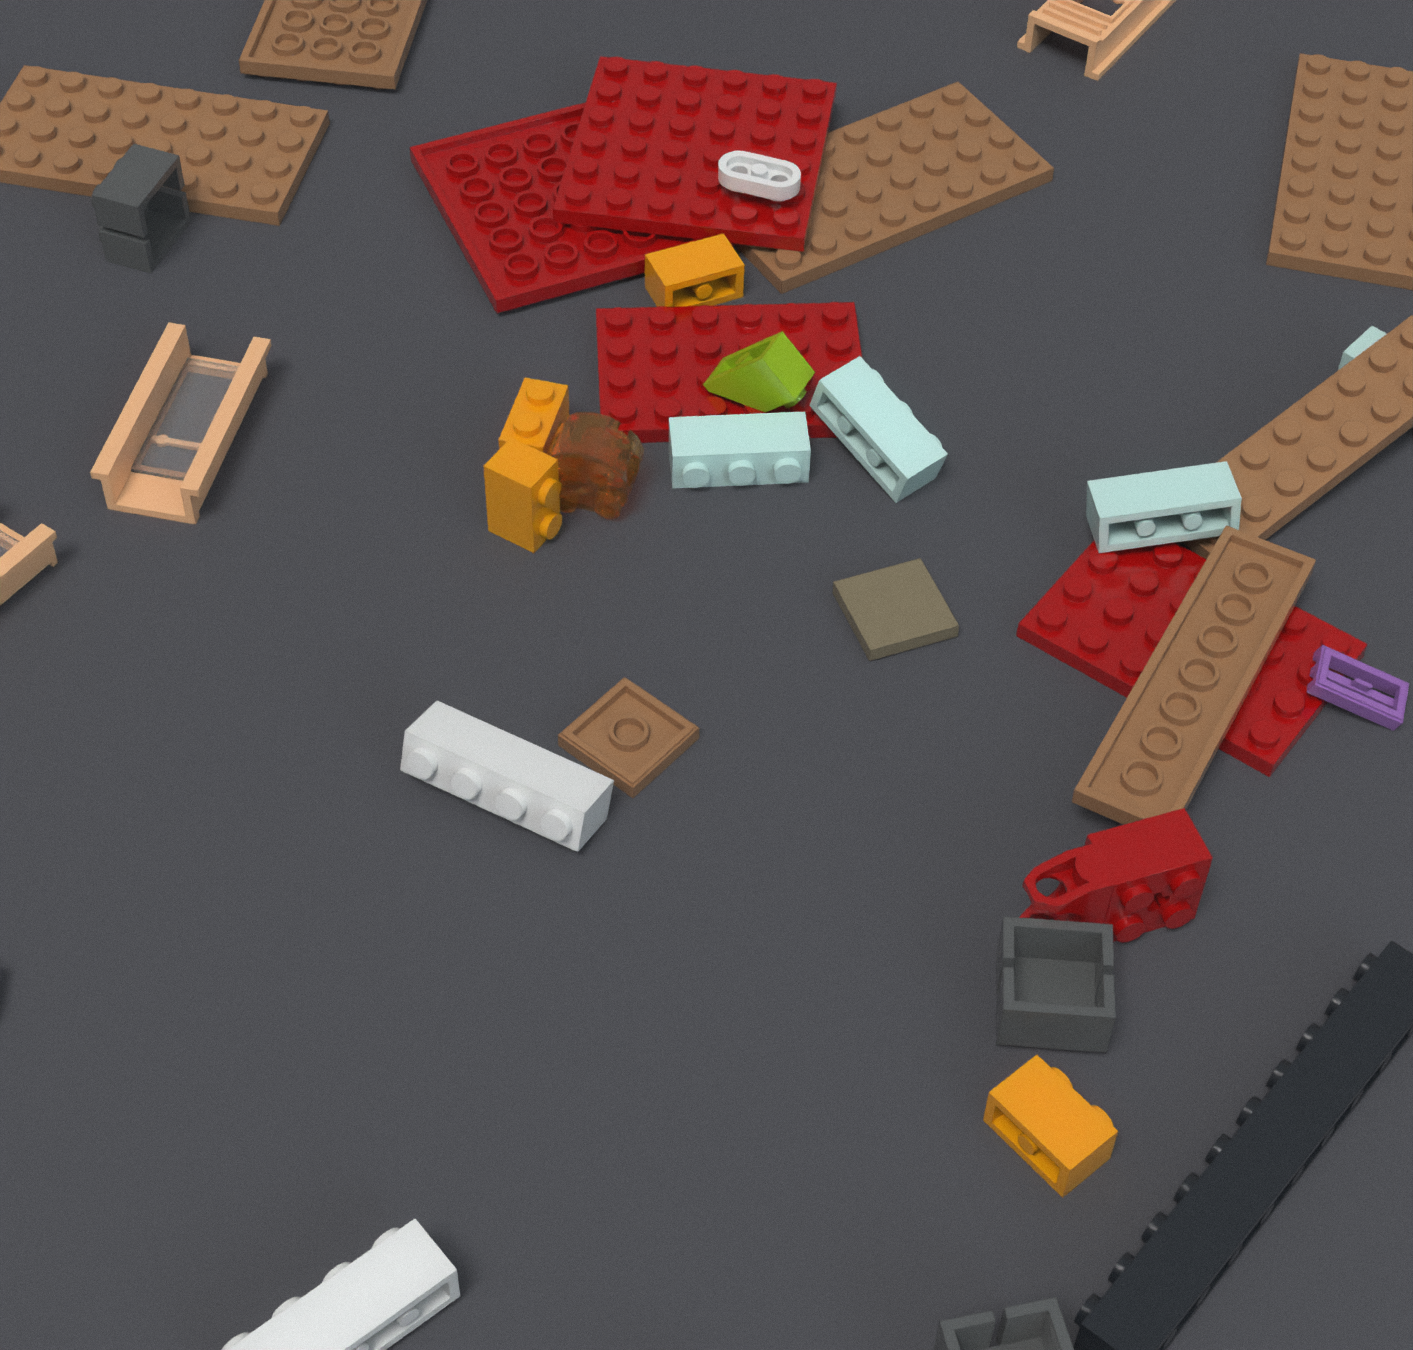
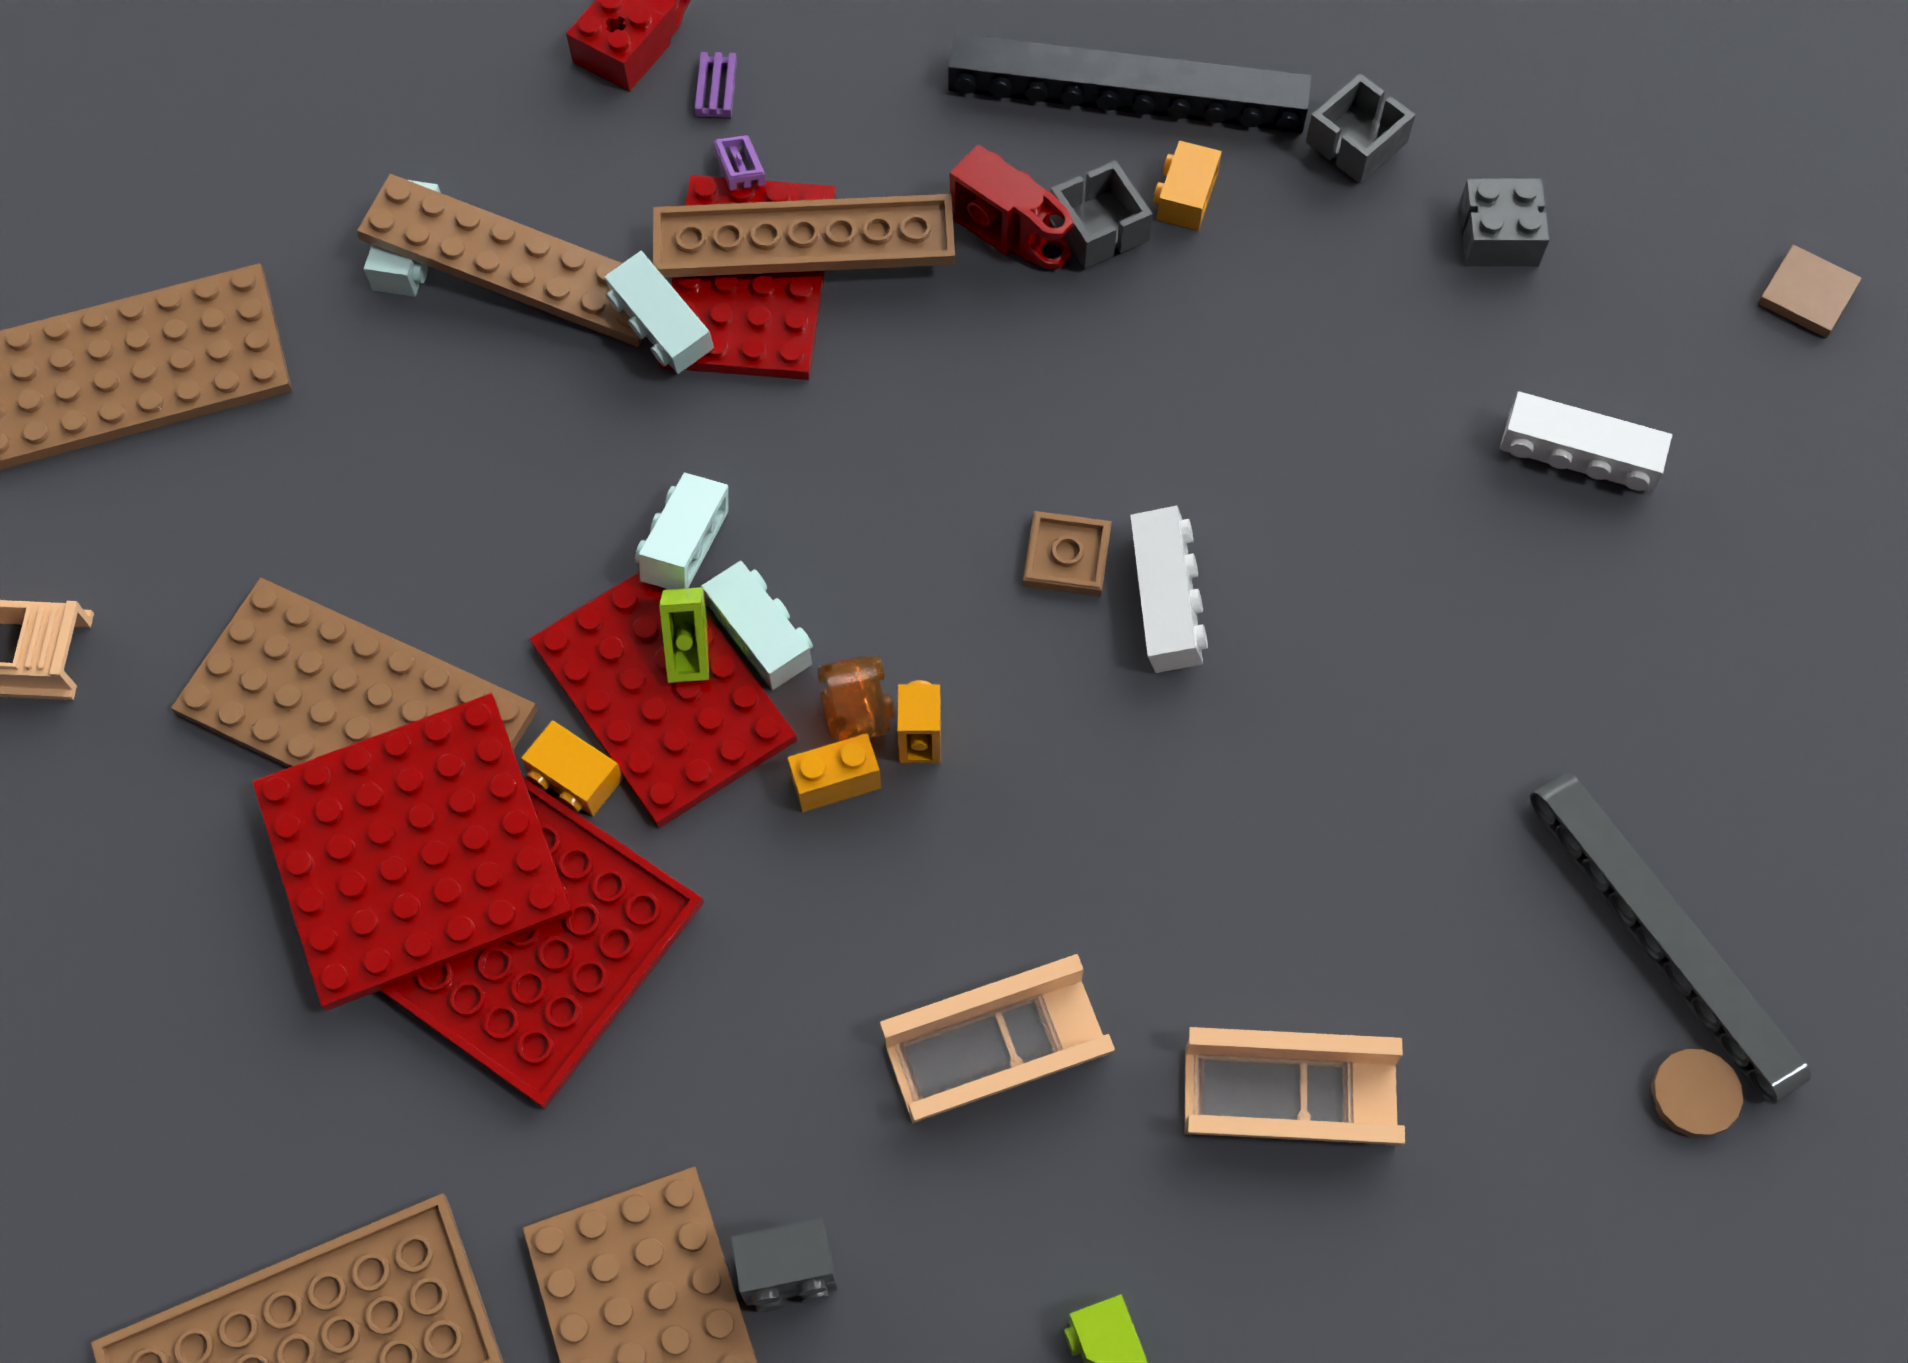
camera: 120 degrees left, 15 degrees up
(759, 175) = (450, 750): white plate -> none
(895, 609) = (840, 455): dark tan tile -> none

